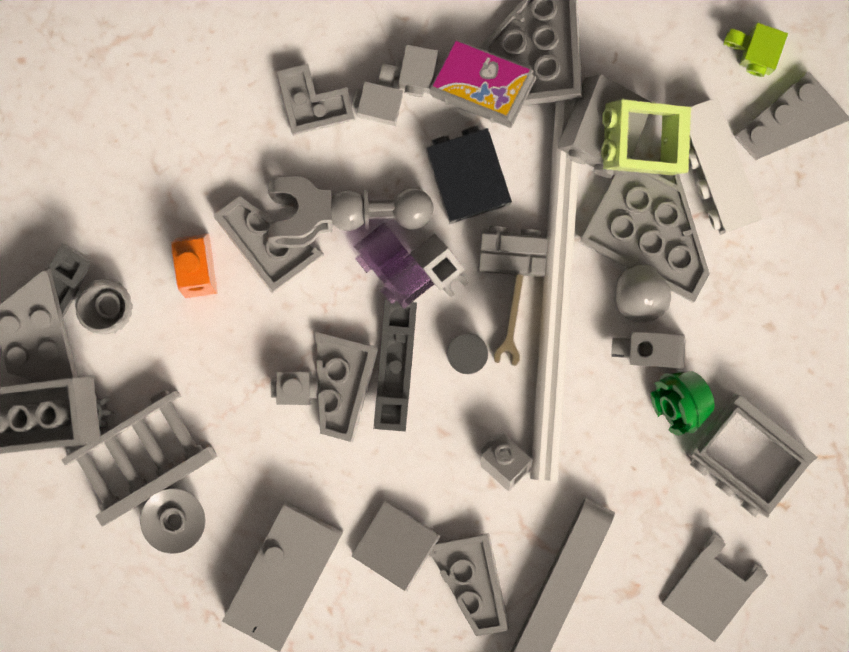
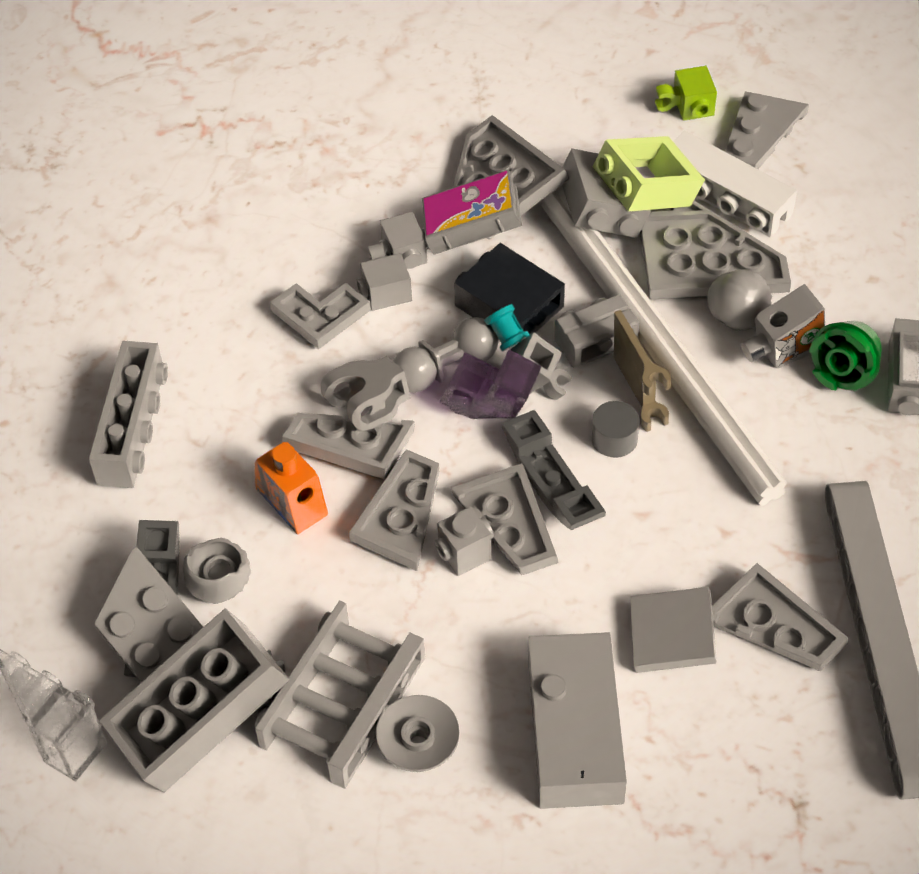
camera: 35 degrees left, 35 degrees down
(109, 123) = (128, 414): none -> light grey brick
(266, 329) = (400, 511): none -> light grey wing
(436, 222) = (506, 327): none -> teal bush
(505, 461) = (723, 491): light grey brick -> none

